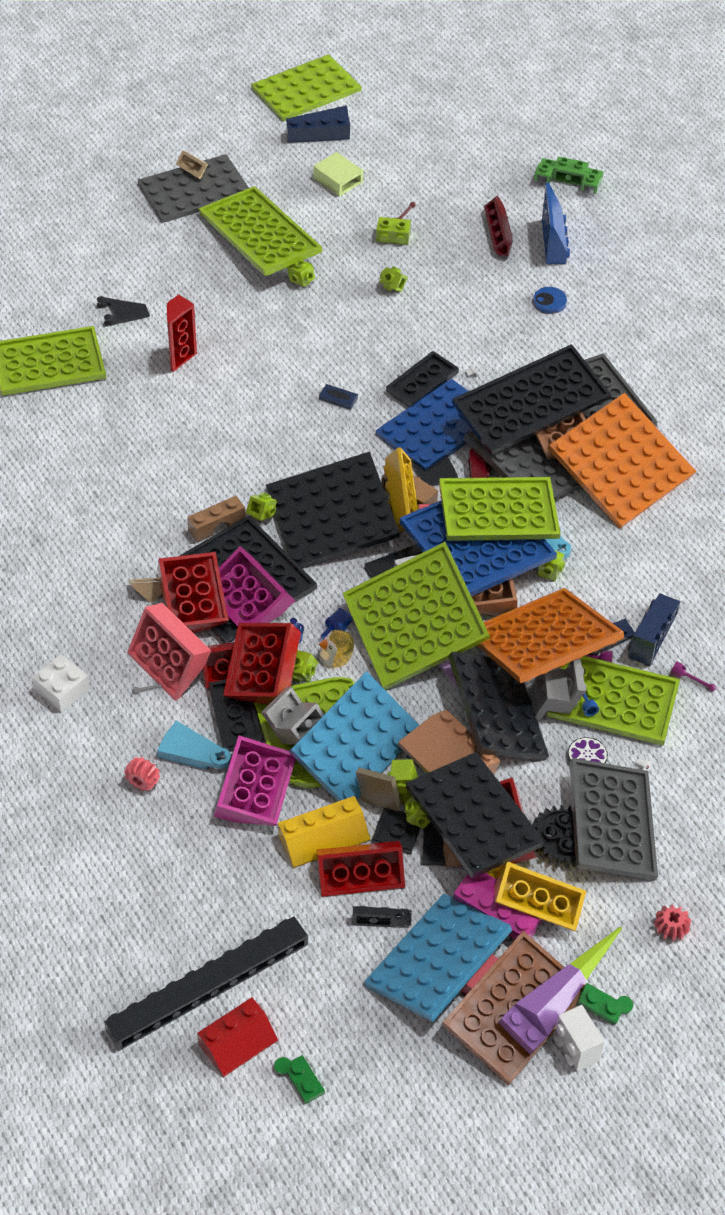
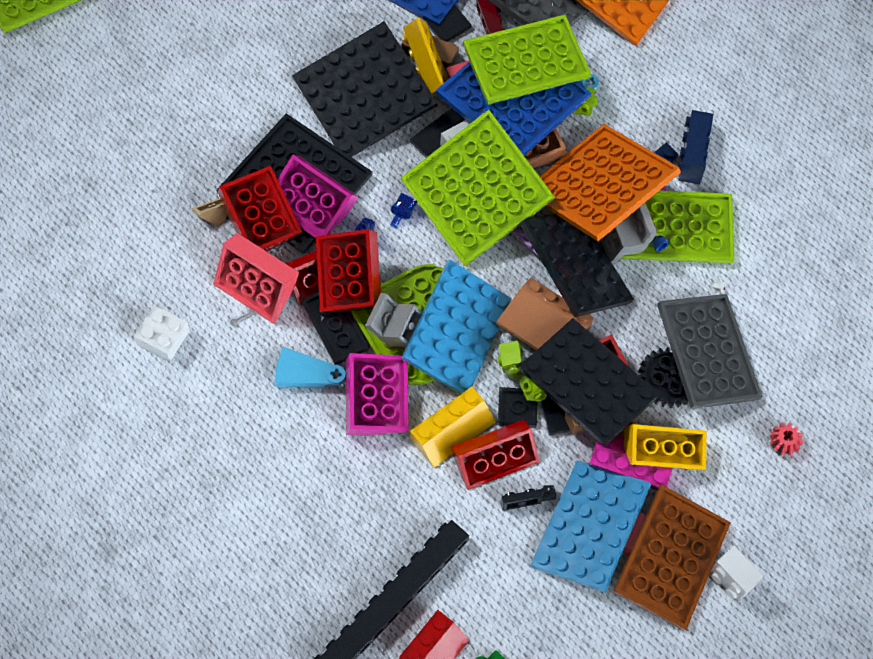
camera: 15 degrees left, 15 degrees up
(142, 774) = (268, 410): coral gear -> none
(204, 522) = (246, 131): medium nougat arch -> none
(261, 506) = (296, 101): lime brick -> none
(304, 666) = (387, 262): lime brick -> none
(339, 647) = (412, 233): clear yellow piece -> none
(378, 789) = (492, 374): dark tan tile -> none
(538, 1012) = (695, 557): medium lavender plate -> none
(588, 749) = (667, 287): tile -> none
(604, 1004) = (746, 533): green hinge -> none
(679, 671) = (728, 184): magenta hinge -> none

